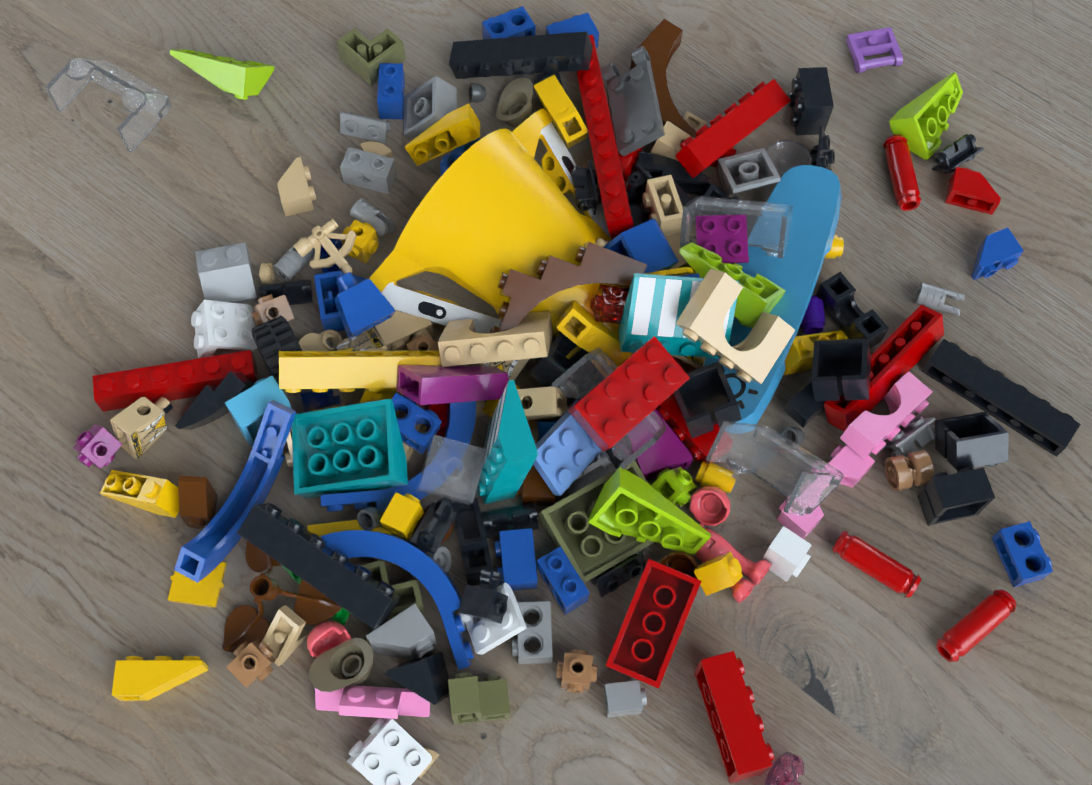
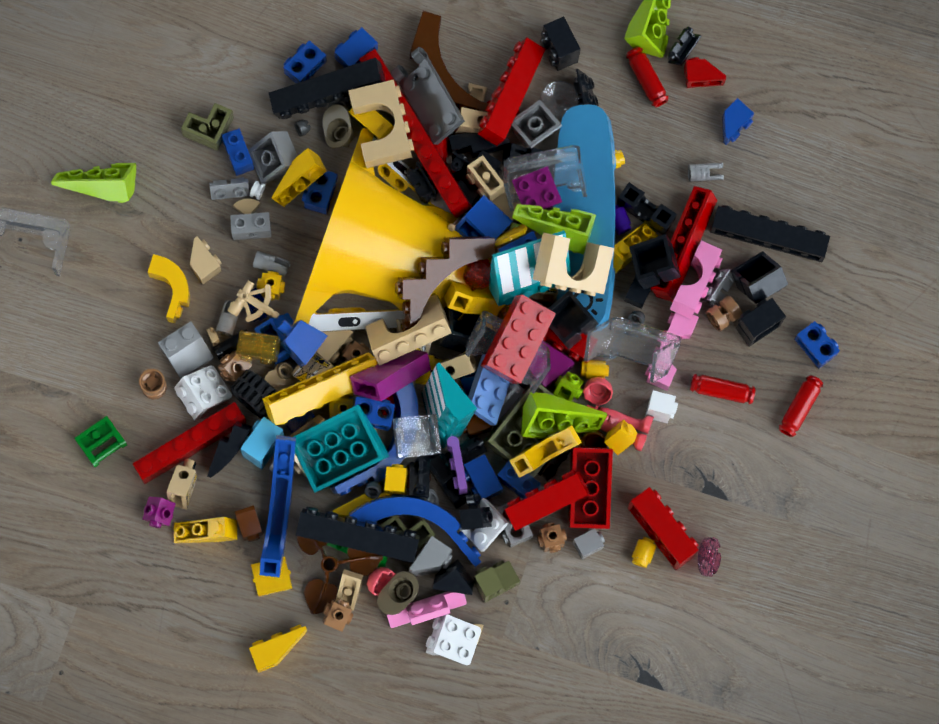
camera: 25 degrees left, 10 degrees up
(75, 334) = (98, 435): none -> green plate
(168, 298) = (153, 384): none -> medium nougat wheel
(255, 209) = (170, 273): none -> yellow arch
(306, 294) = (258, 346): none -> clear yellow brick
(395, 137) = (257, 190): none -> white bush
(488, 524) = (457, 464): none -> medium lavender plate
(572, 128) = (395, 145): none -> tan arch
(585, 614) = (546, 501): none -> red brick
(610, 550) = (544, 451): none -> yellow arch
(694, 740) = (643, 552): none -> yellow brick

